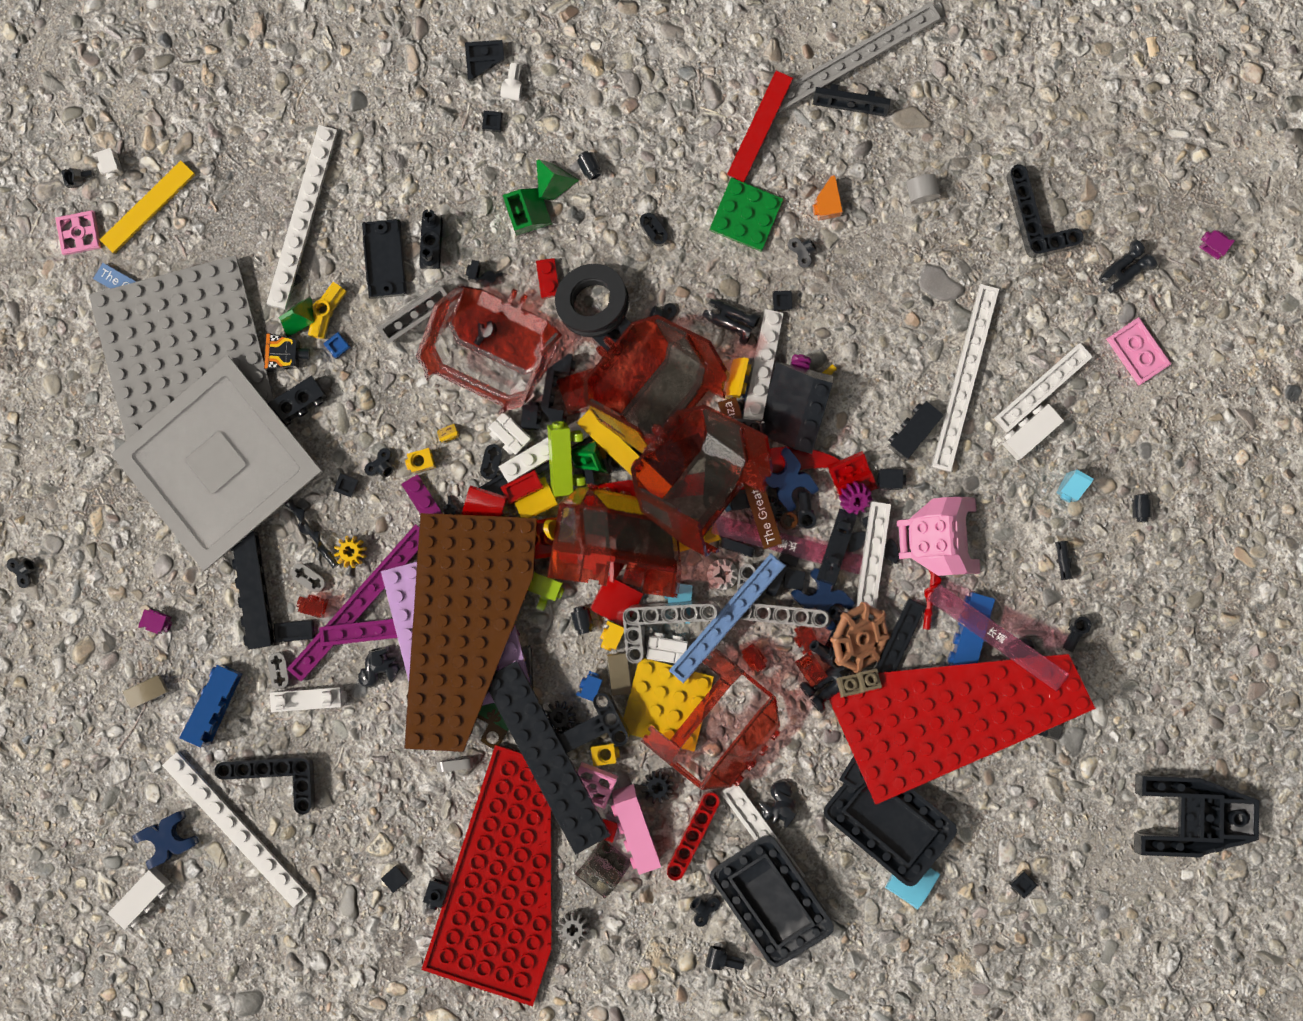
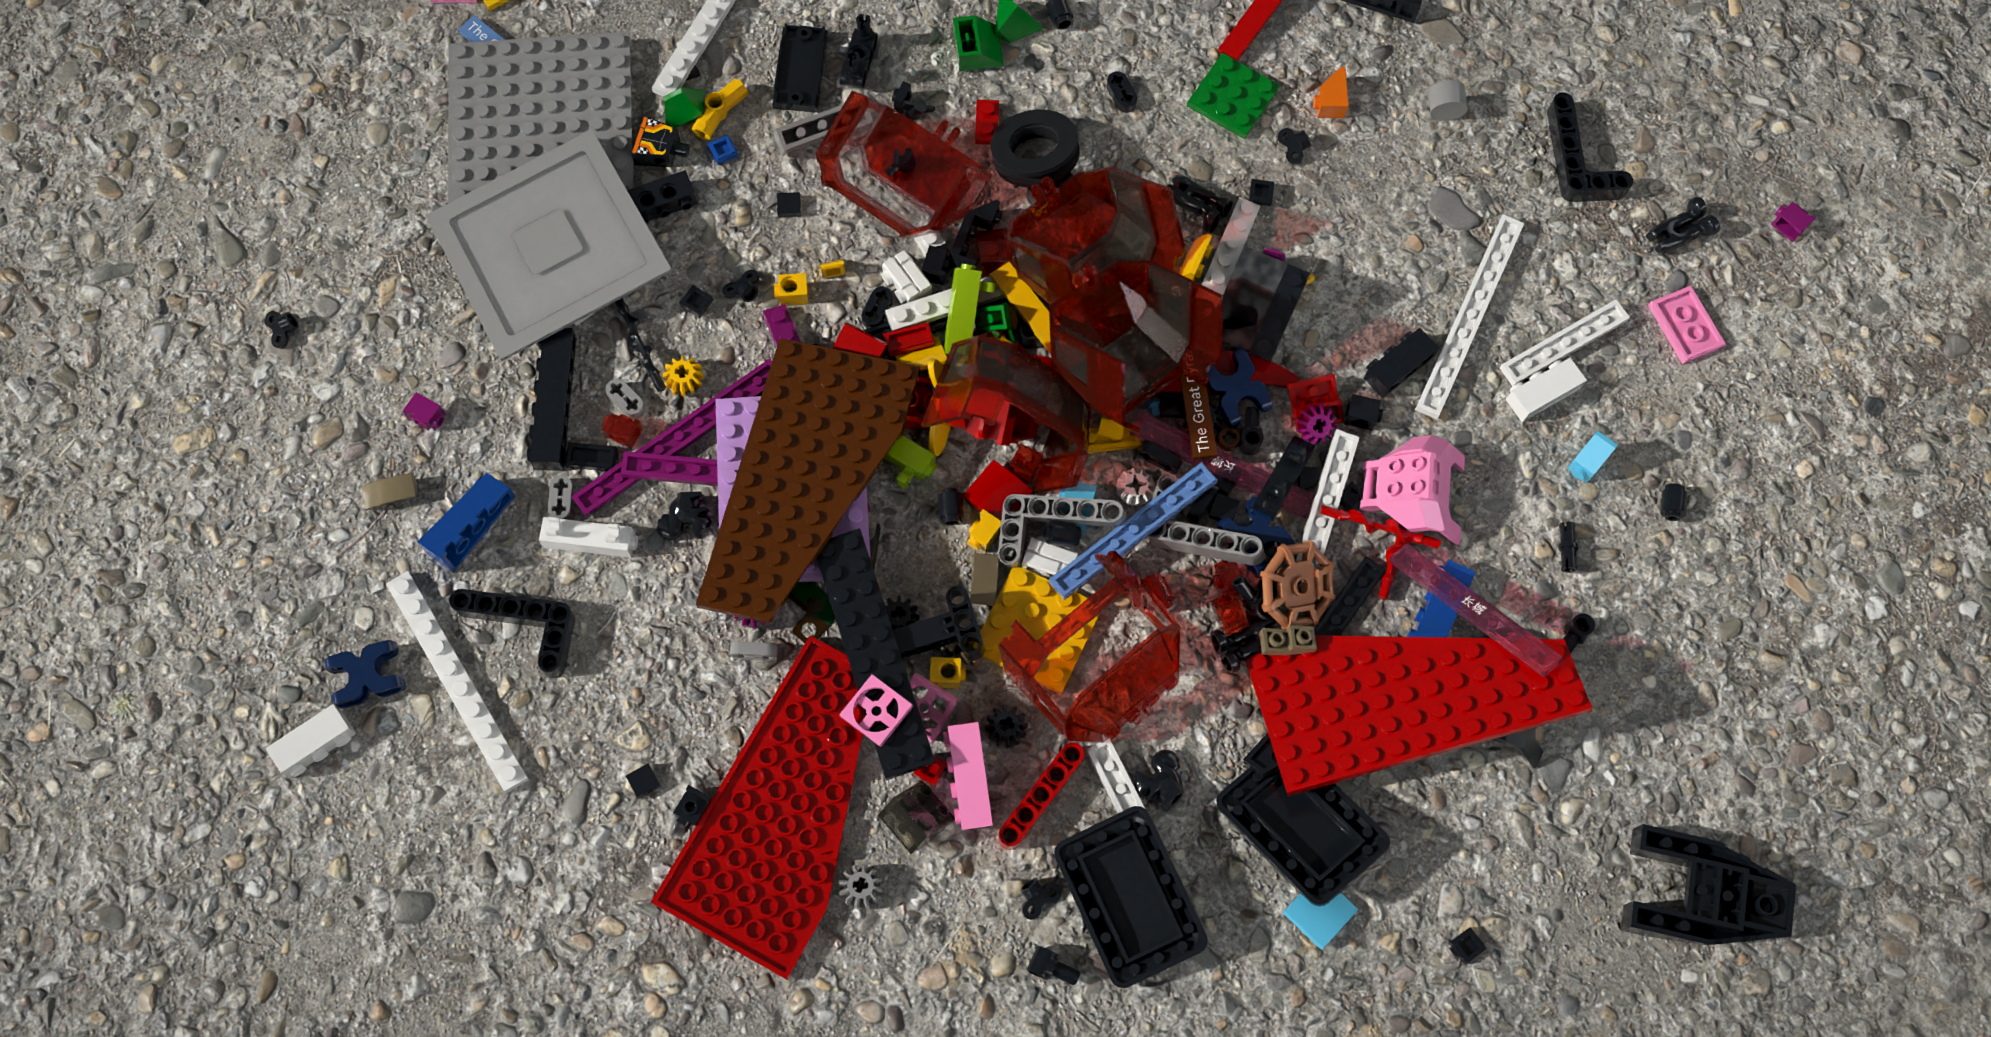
camera: 10 degrees right, 15 degrees down
(401, 385) = (789, 204): none -> black tile
(578, 799) = (877, 737): none -> bright pink piece
(590, 686) = (941, 585): blue brick -> none
(672, 631) = (1062, 533): none -> black brick
(921, 573) = (1388, 526): none -> red piece

